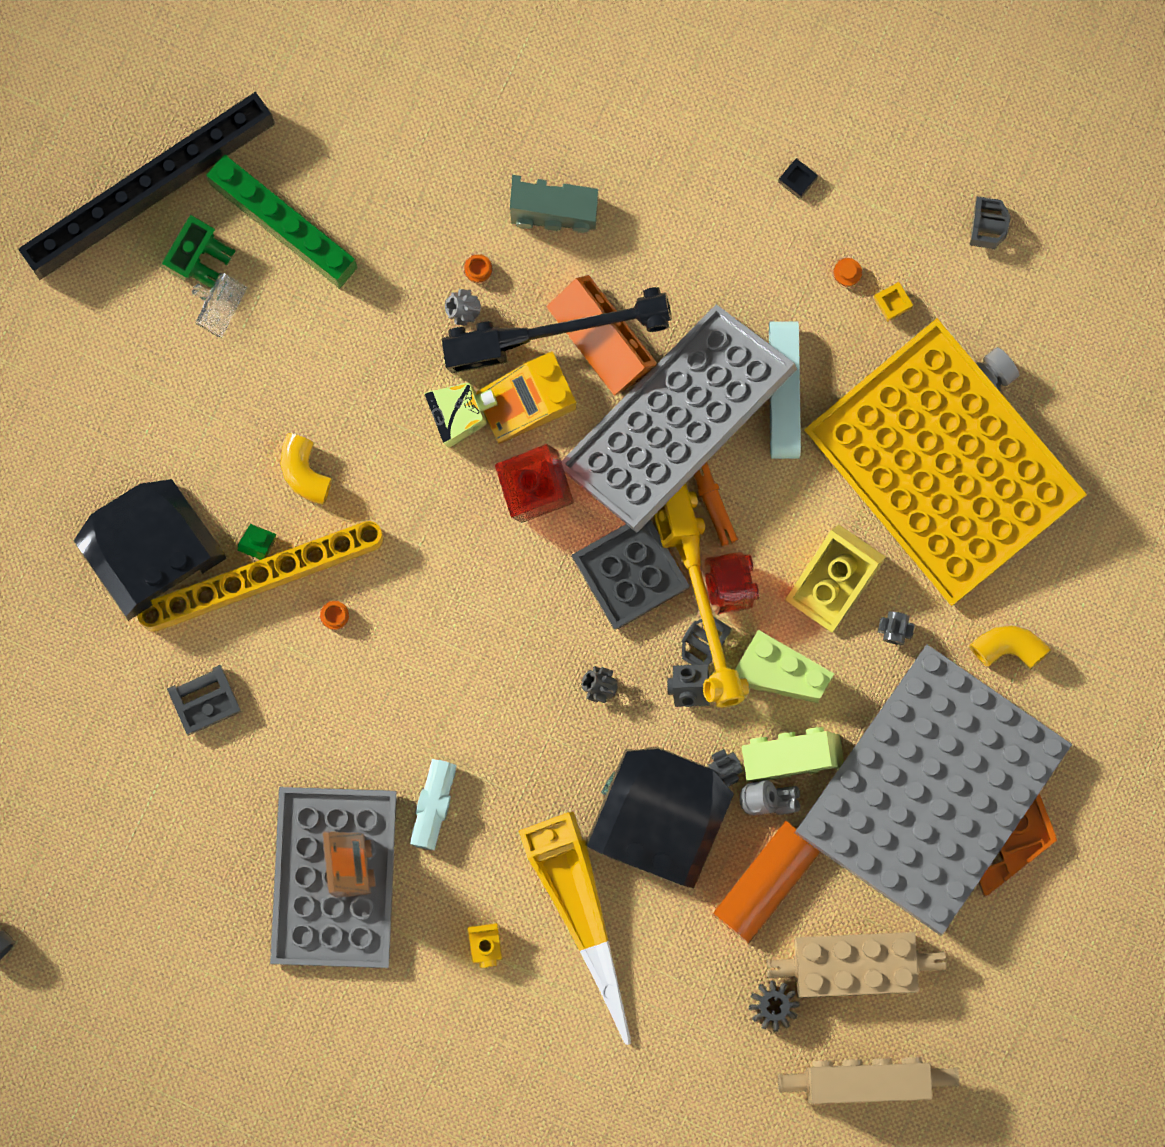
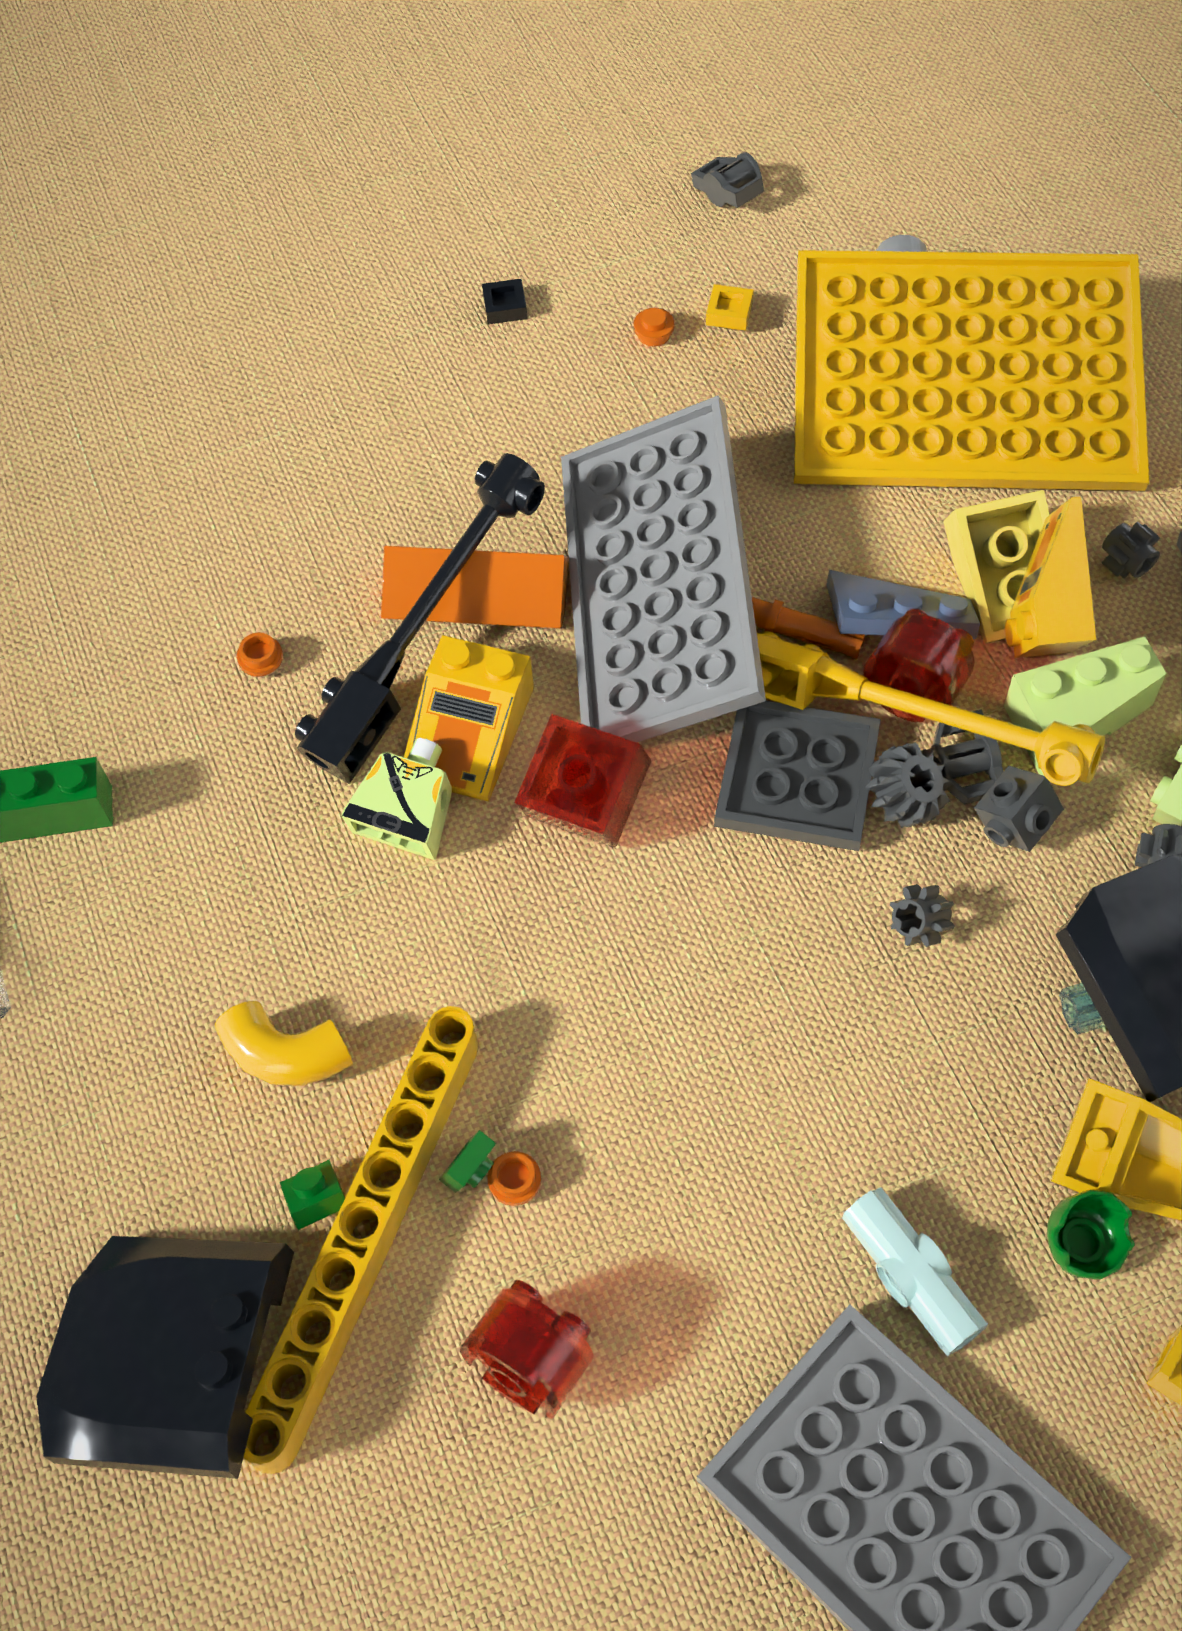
camera: 45 degrees left, 20 degrees down
(208, 708) = (479, 1482): dark grey plate -> none
(267, 684) = (529, 1349): none -> clear red brick
(323, 592) = (470, 1163): none -> green plate
(348, 864) = (922, 1469): medium nougat slope -> none
(462, 307) = (285, 698): light grey gear -> none
(506, 862) = (1090, 1234): none -> green hair
(553, 206) = (273, 522): sand green wedge -> none
(666, 636) = (908, 785): none -> dark grey gear
(758, 534) = (872, 605): none -> sand blue wing
(785, 401) = (763, 483): light aqua beam -> none
(808, 621) = (1055, 596): none -> yellow slope

